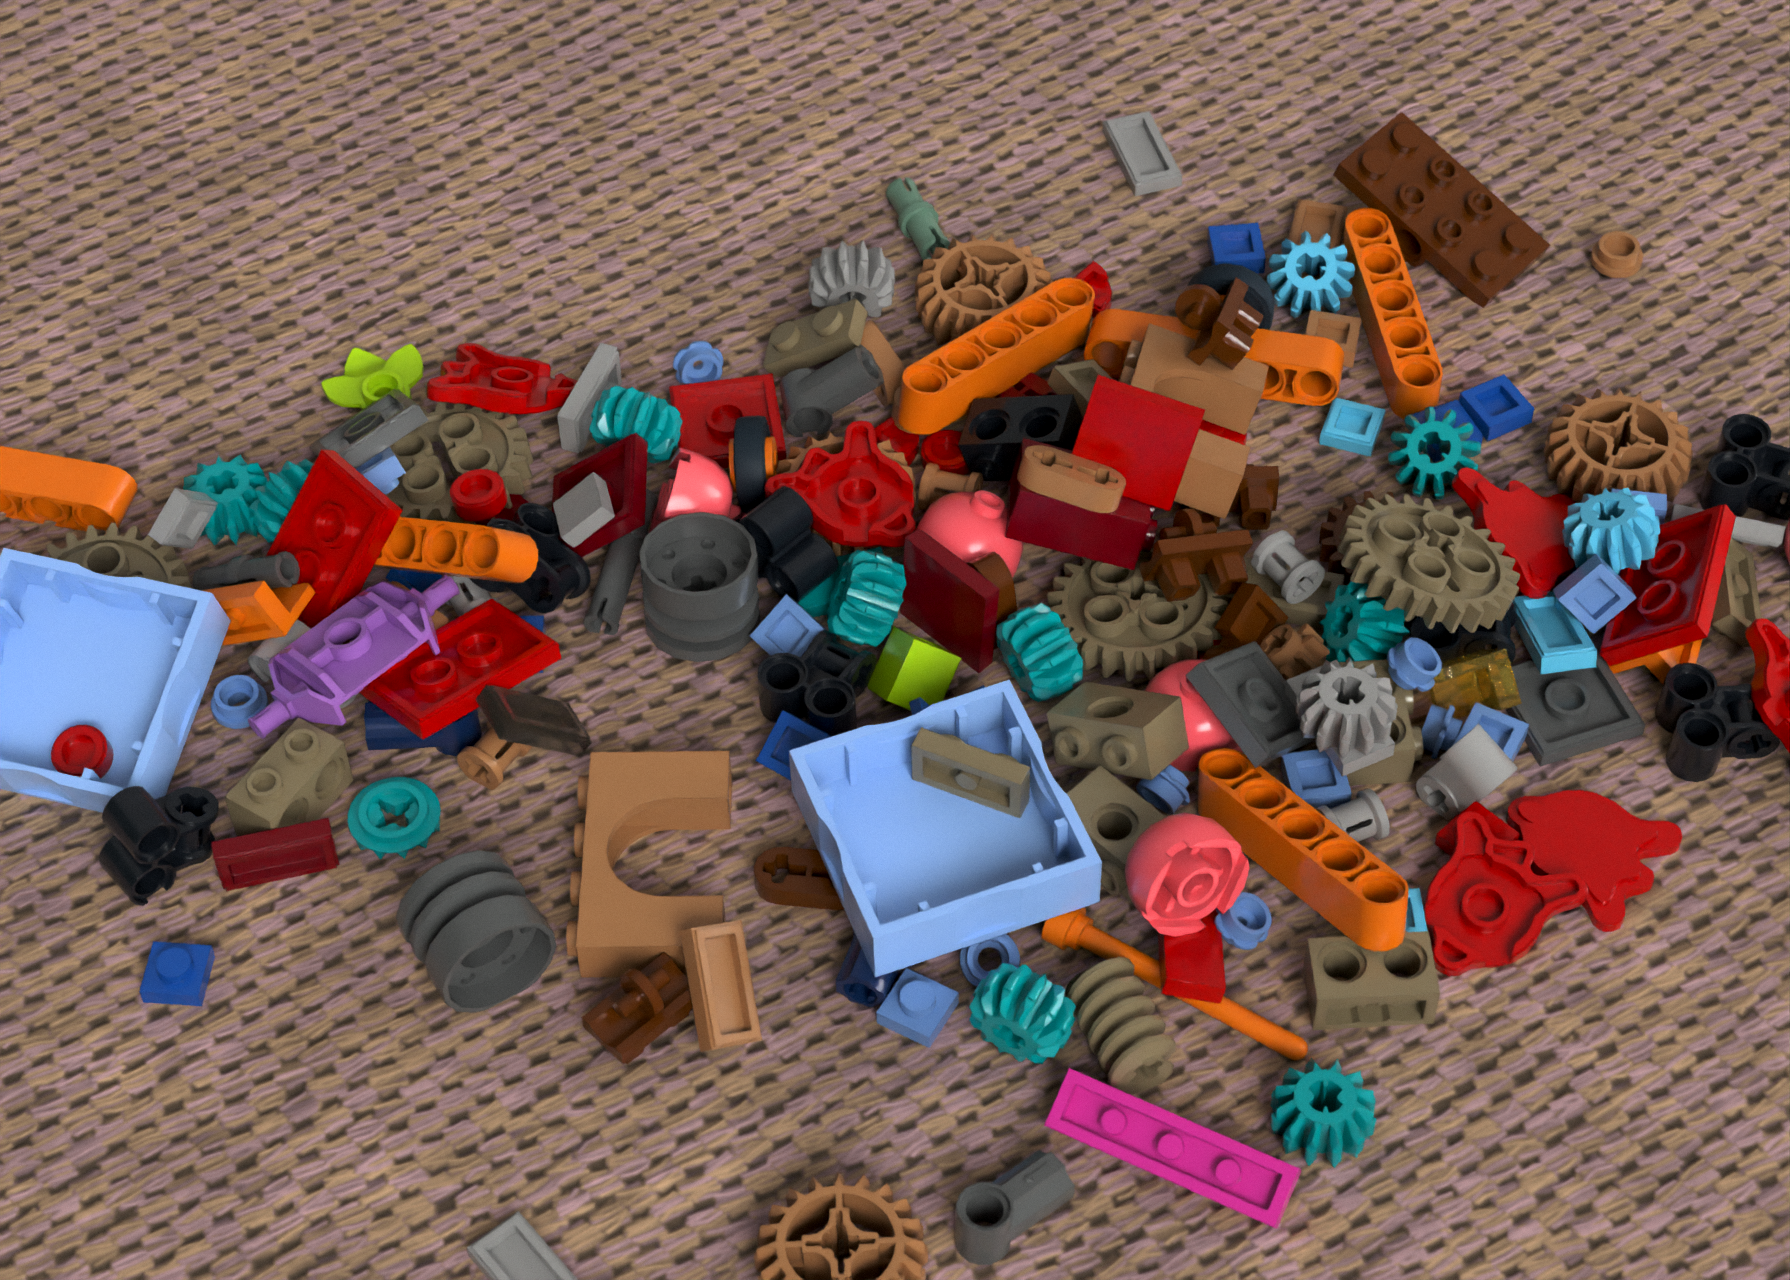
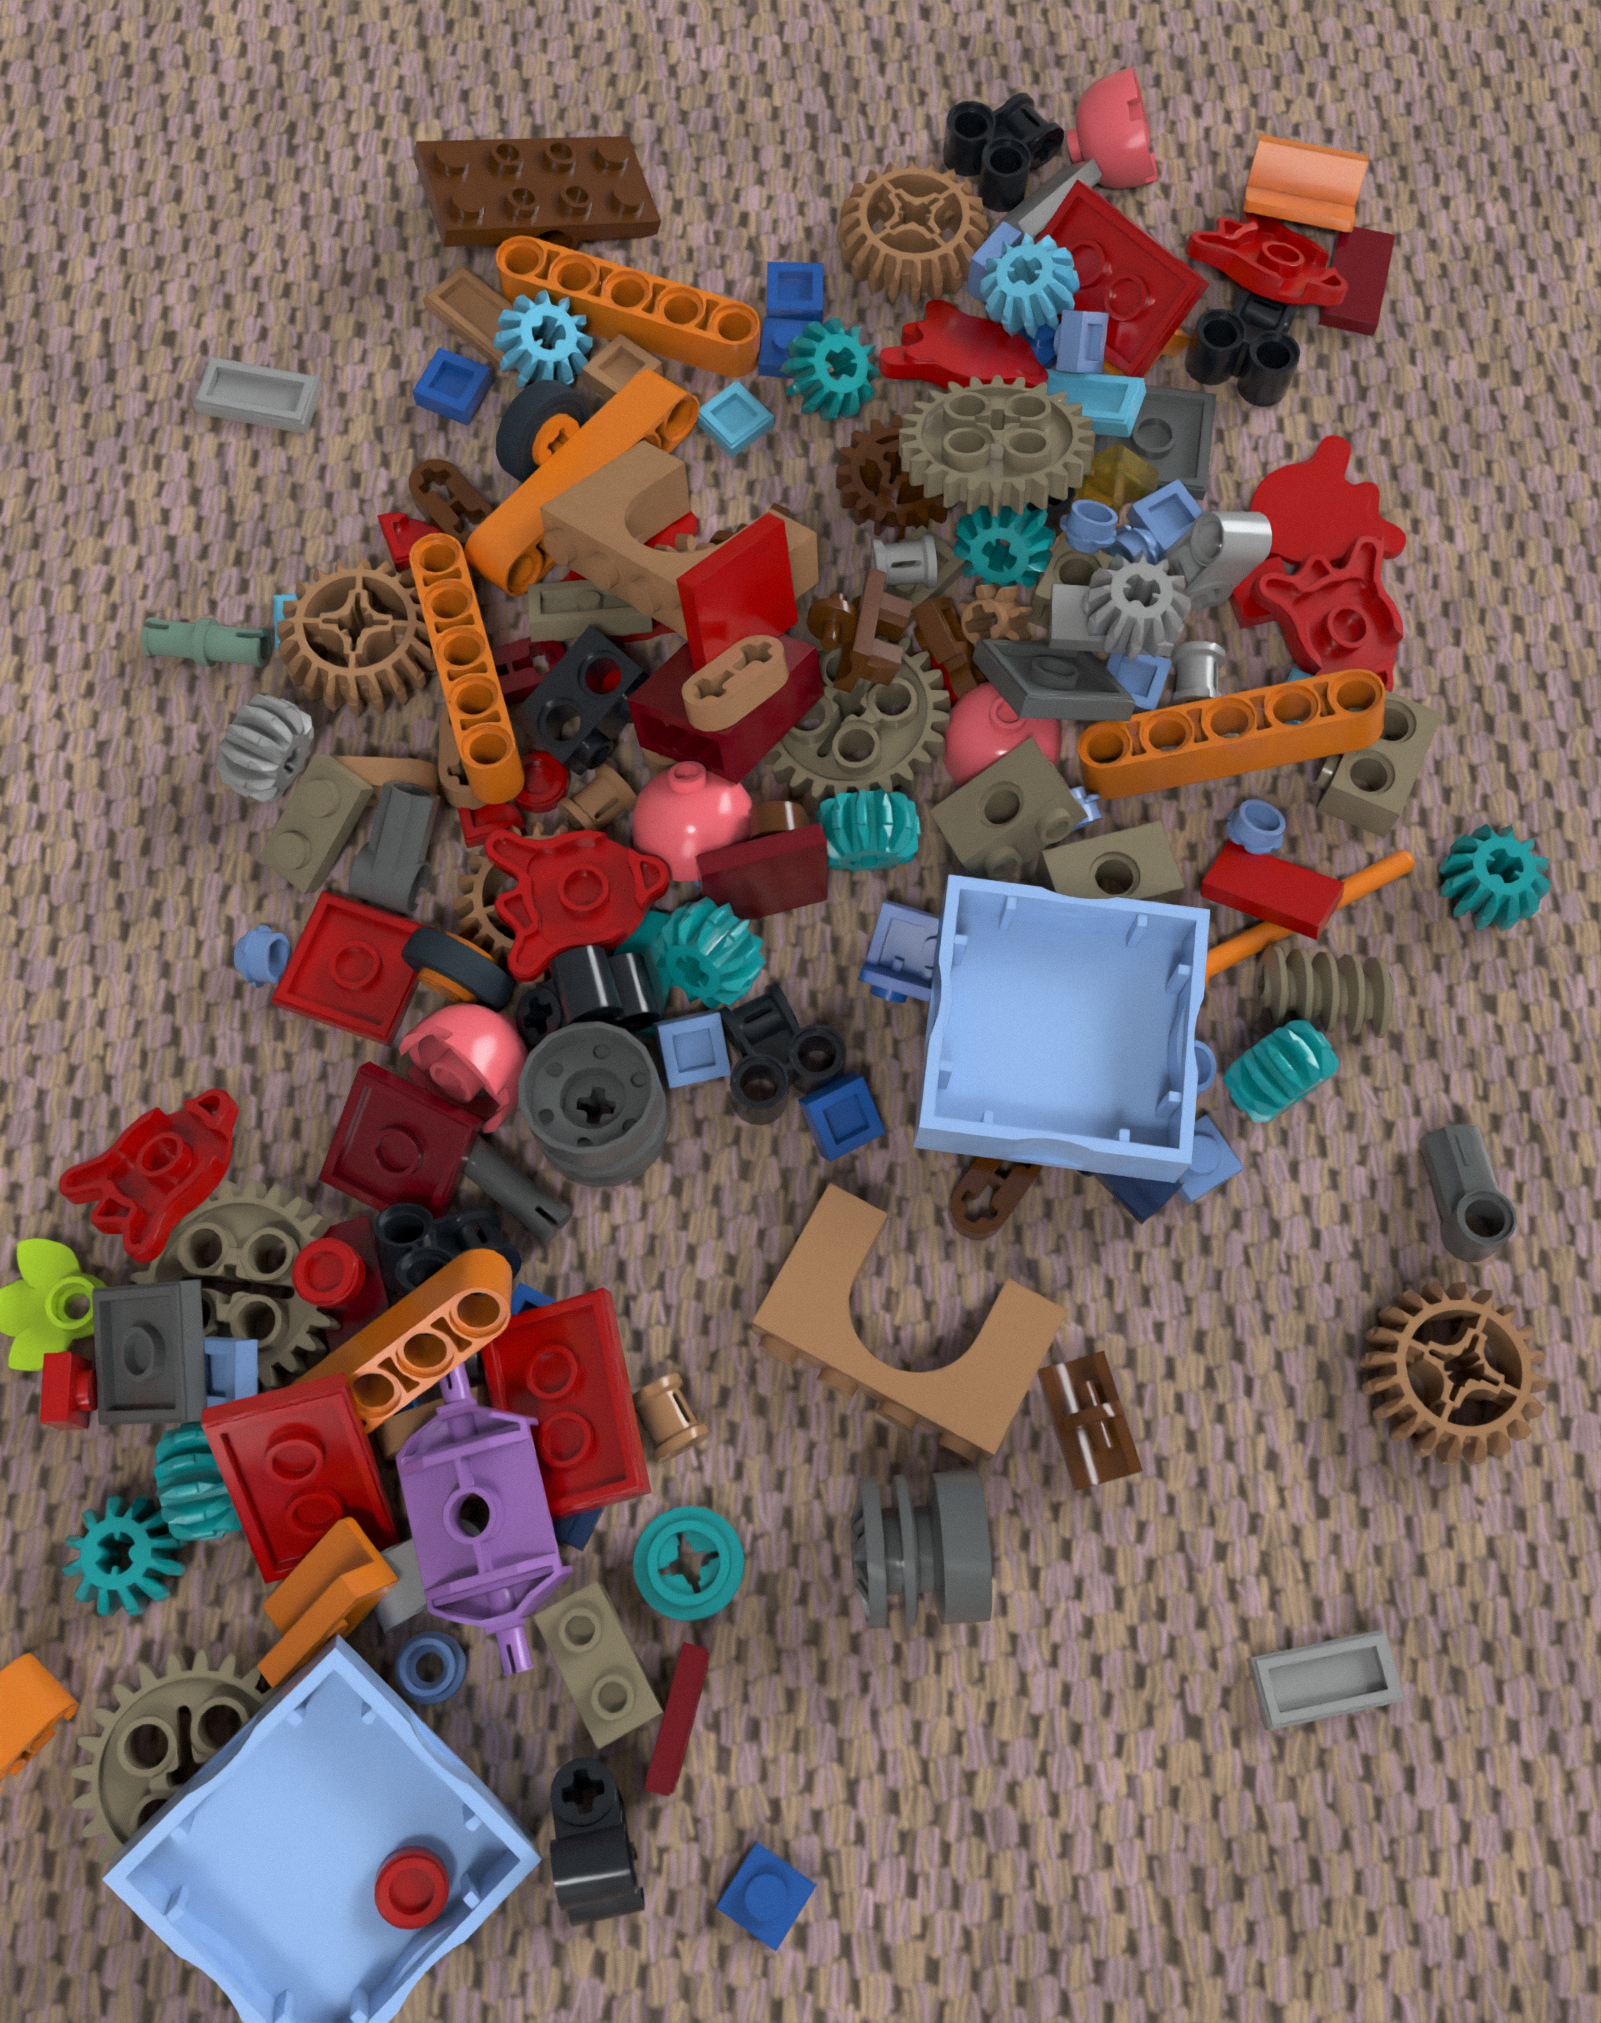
camera: 65 degrees left, 20 degrees up
(183, 518) = (152, 1625): light grey tile -> none
(275, 570) = (268, 1585): dark grey pin -> none
(319, 412) = (67, 1391): none -> red plate
(533, 720) = (669, 1361): clear smoke tile -> none
(575, 415) = (239, 1088): light grey tile -> none
(583, 510) = (421, 1172): light grey tile -> none
(631, 411) = (322, 1060): teal gear -> none
(720, 985) = (1109, 1333): medium nougat tile -> none
(912, 669) = (808, 957): lime panel -> none
(970, 772) = (1034, 953): dark tan plate -> none
(1151, 299) = (462, 495): none -> reddish brown beam
(1173, 1148) = (1469, 1022): dark pink plate -> none
(1184, 872) = (1221, 846): coral cylinder -> none
(1222, 326) = (591, 447): reddish brown hips -> none
(1617, 255) = (675, 94): medium nougat plate -> none

